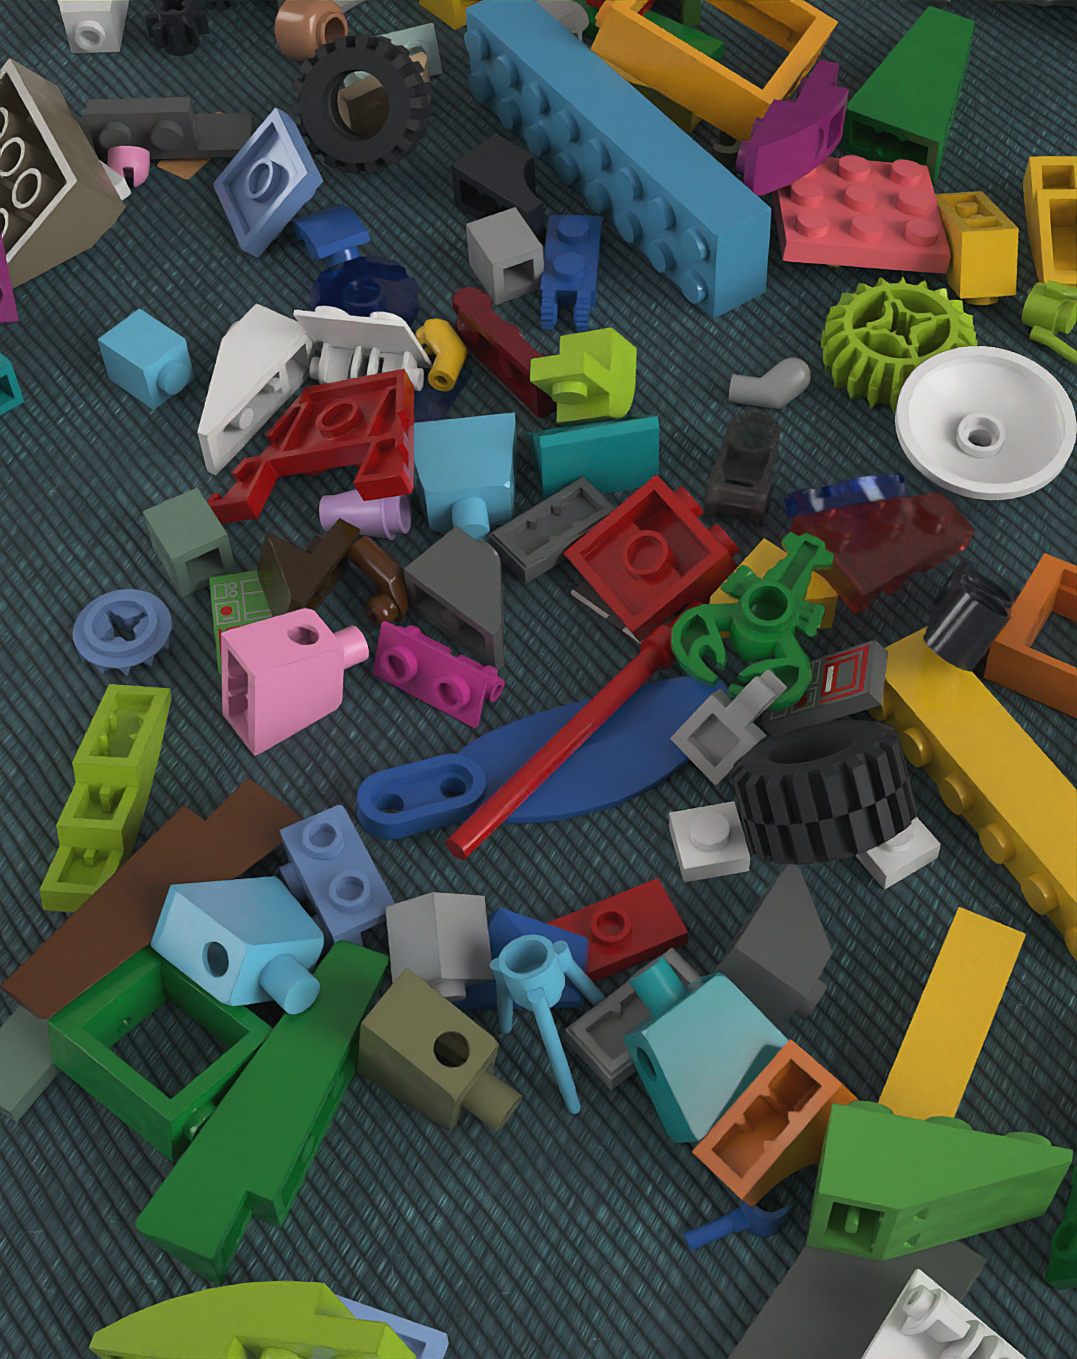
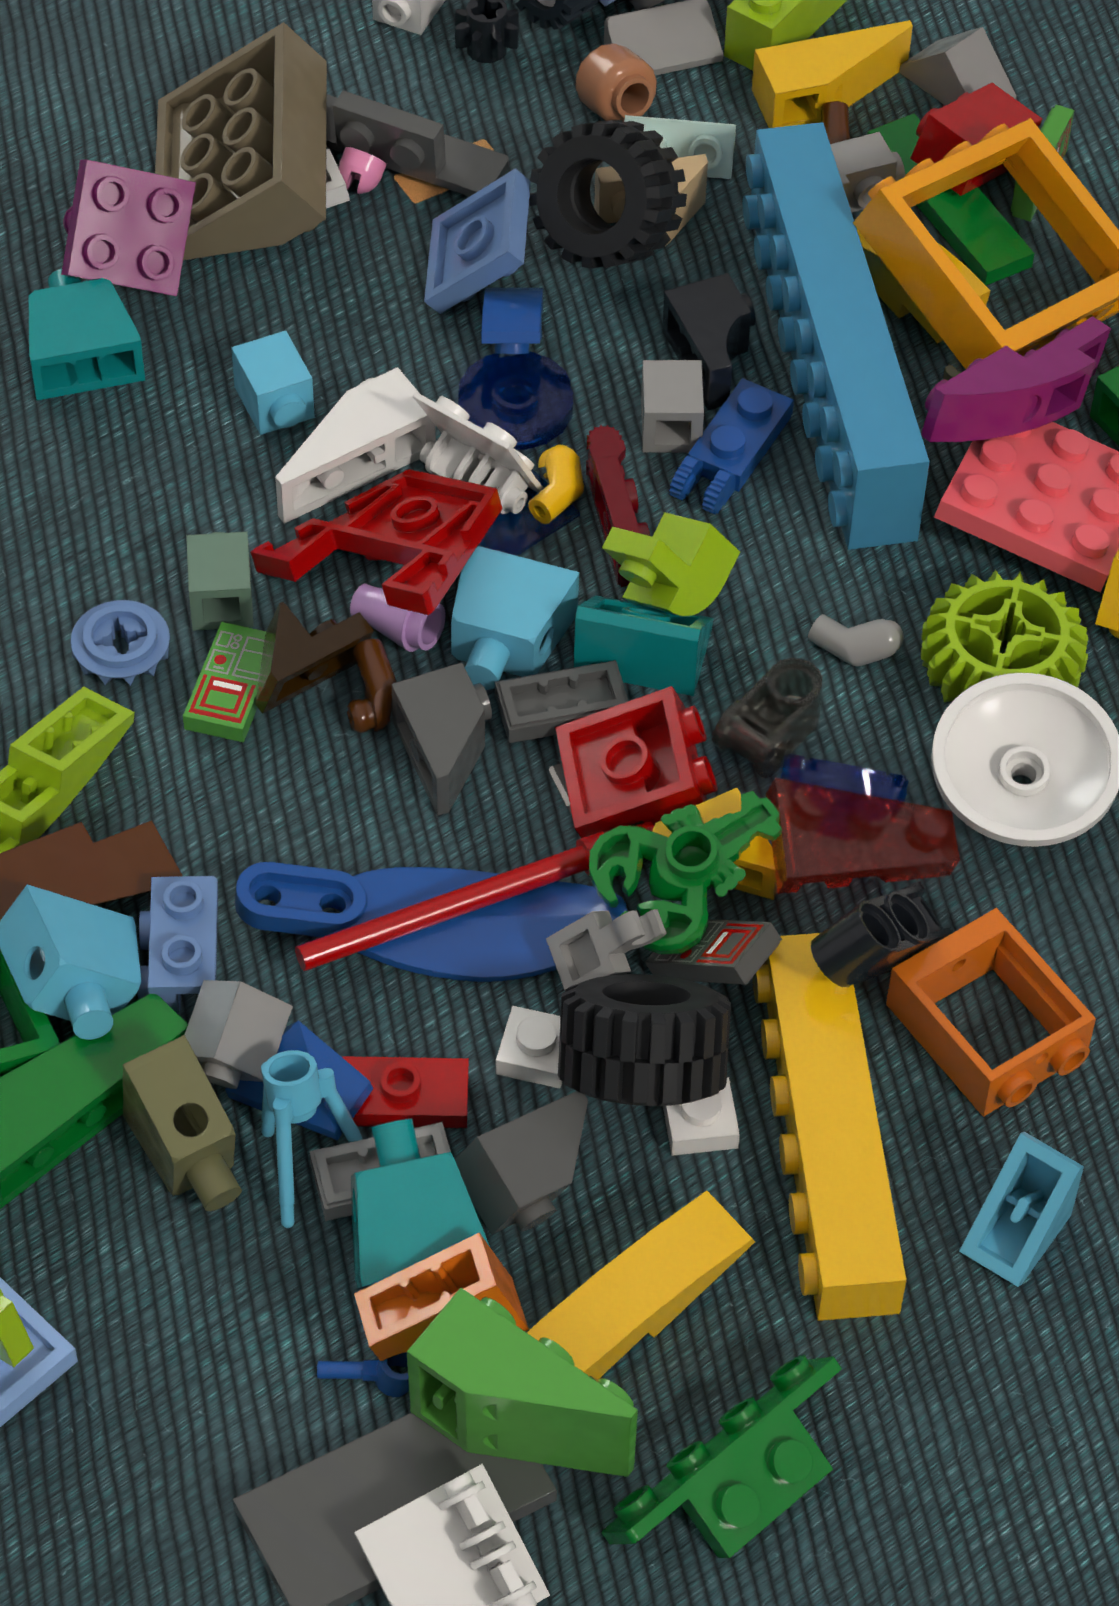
camera: 20 degrees right, 0 degrees up
(284, 675) = (237, 740): bright pink torso -> none
(433, 675) = (368, 783): dark pink hinge -> none

